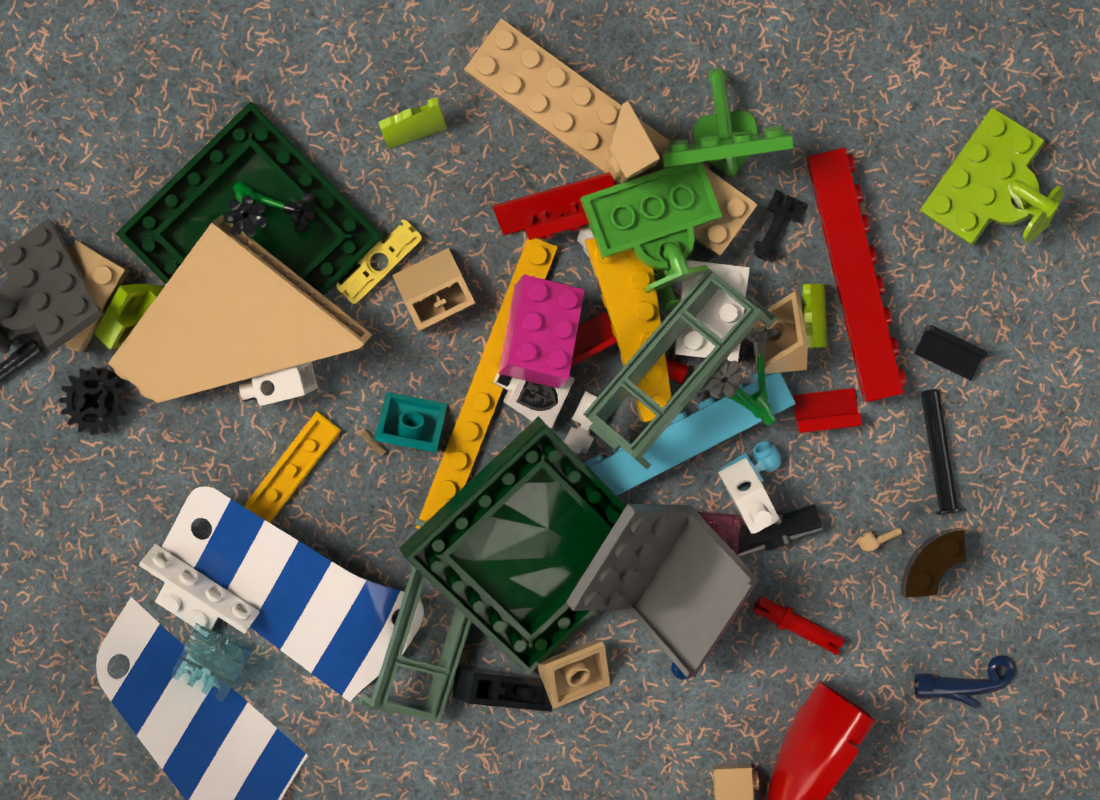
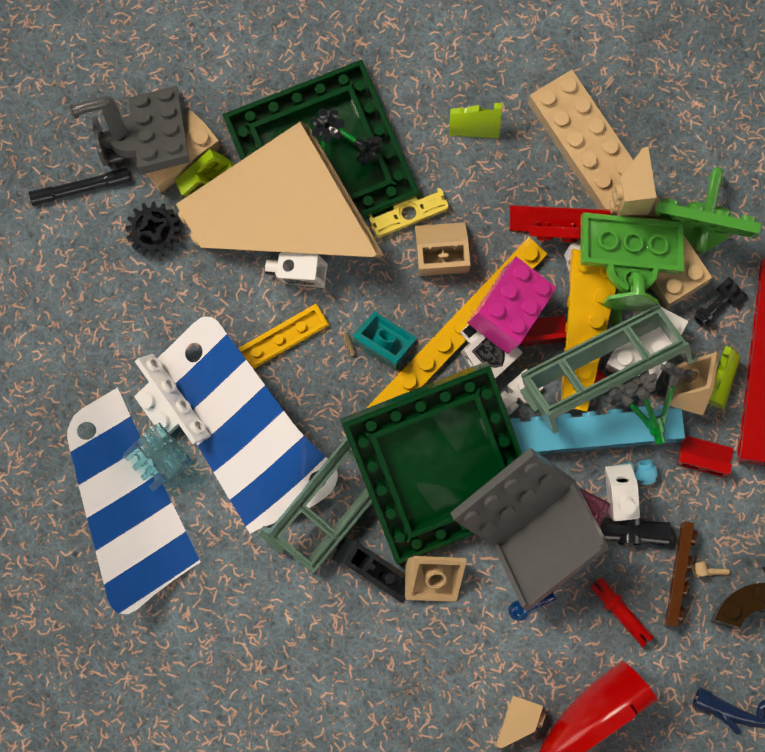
camera: 20 degrees right, 10 degrees down
(851, 571) = (679, 586): none -> reddish brown plate

